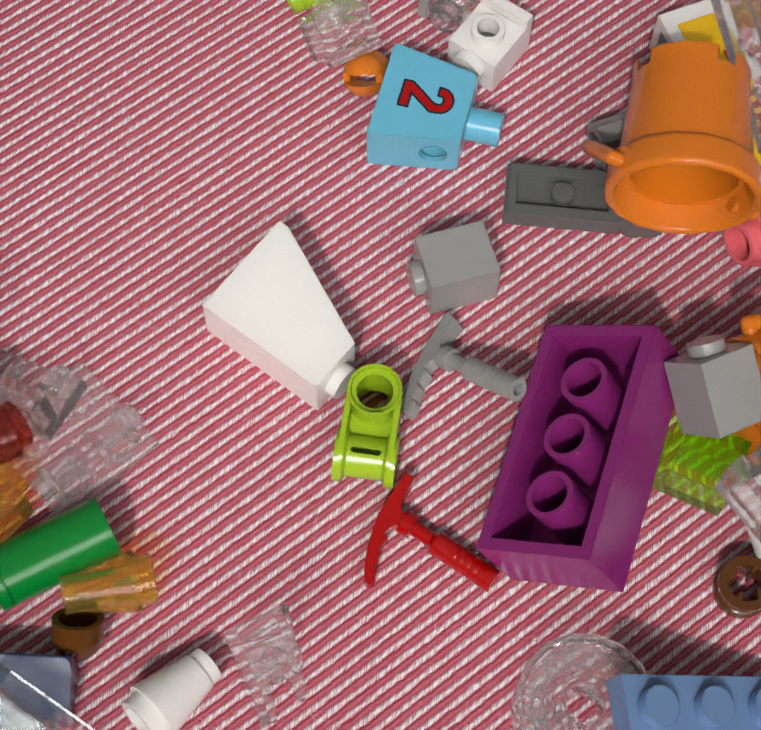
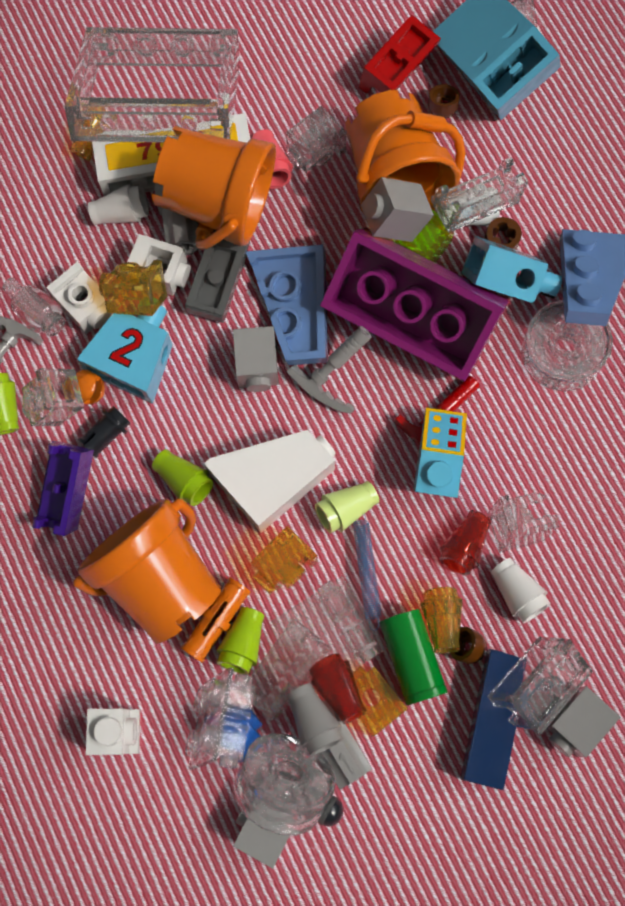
camera: 75 degrees left, 10 degrees up
(44, 326) = (242, 641): none -> lime cone
(72, 289) = (198, 643): none -> orange pin
(115, 183) = (152, 570): none -> orange piece
(164, 355) = (282, 561): none -> clear yellow brick
(204, 464) = (362, 547): none -> medium blue piece
(219, 74) = (63, 488): none -> dark purple hinge
(225, 600) = (465, 545): none -> clear red cone
(259, 426) = (345, 506): none -> yellowish green cone
(261, 209) = (183, 477): none -> lime cone
(310, 107) = (104, 431): none -> black pin
(357, 537) = (441, 453): none -> medium azure slope
(369, 437) = (365, 436): lime piece -> none
(511, 74) = (133, 288): none -> clear yellow brick
(559, 118) = (172, 256): none -> white brick
(575, 290) = (293, 289): none -> medium blue wing
(626, 46) = (120, 206): none -> white cone
(675, 587) = (497, 266): none -> medium azure torso

